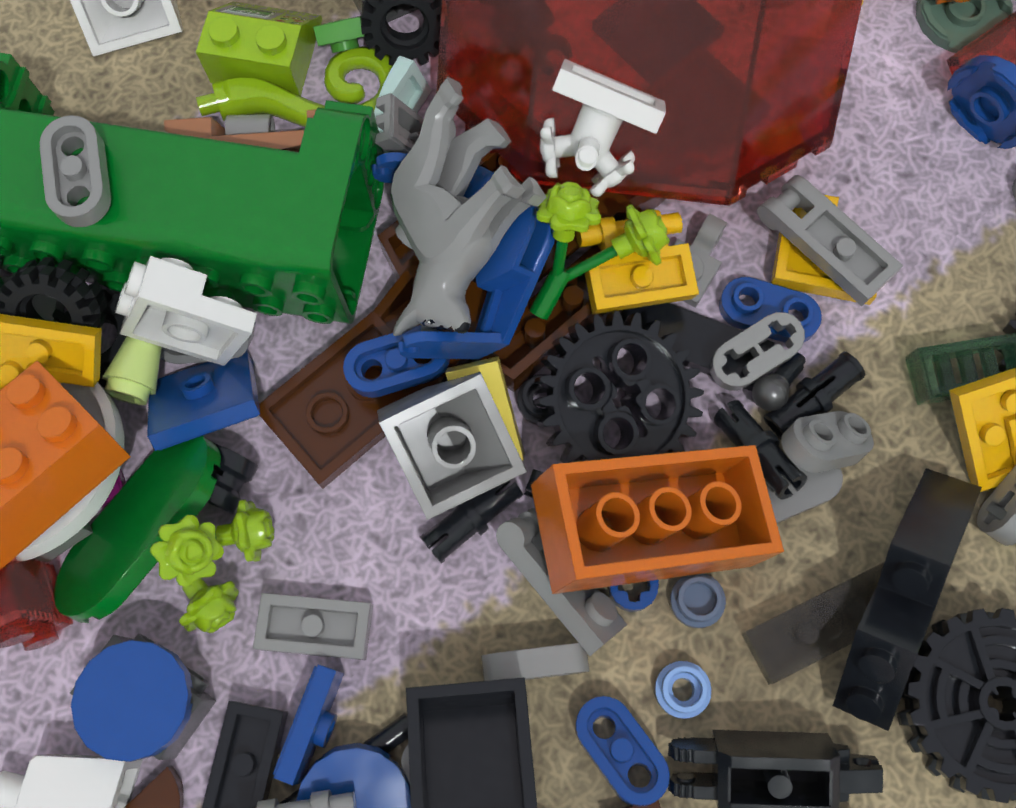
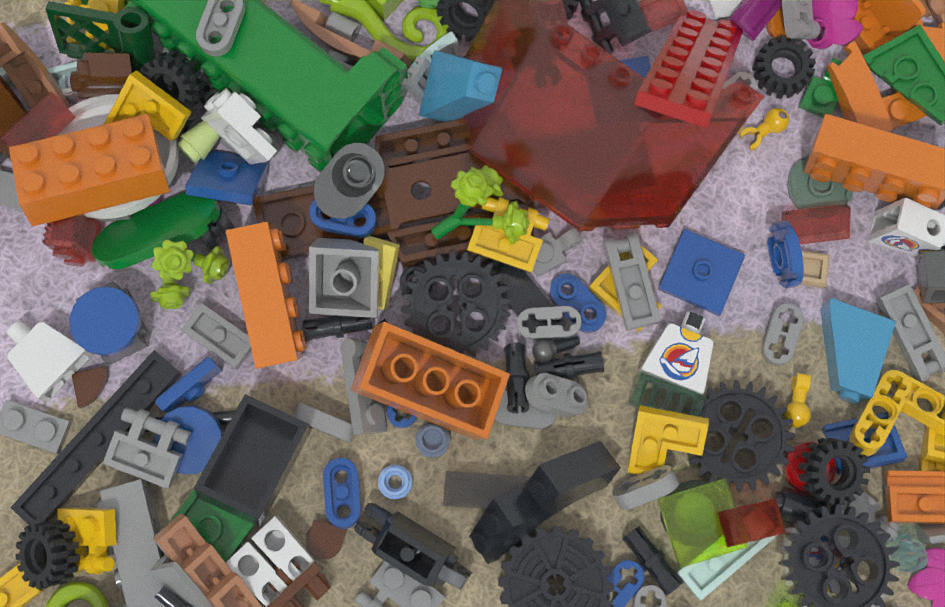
camera: 25 degrees right, 5 degrees up
(351, 526) = (265, 294): none -> orange brick
(370, 301) = (349, 180): none -> dark grey piece
(445, 230) = (404, 152): light grey animal -> none
(484, 70) = (457, 87): none -> dark azure slope
(506, 277) = (431, 186): blue piece -> none
(600, 117) = (529, 140): white piece -> none
(897, 187) = (701, 272): none -> blue plate
(948, 299) = (681, 355): none -> white torso

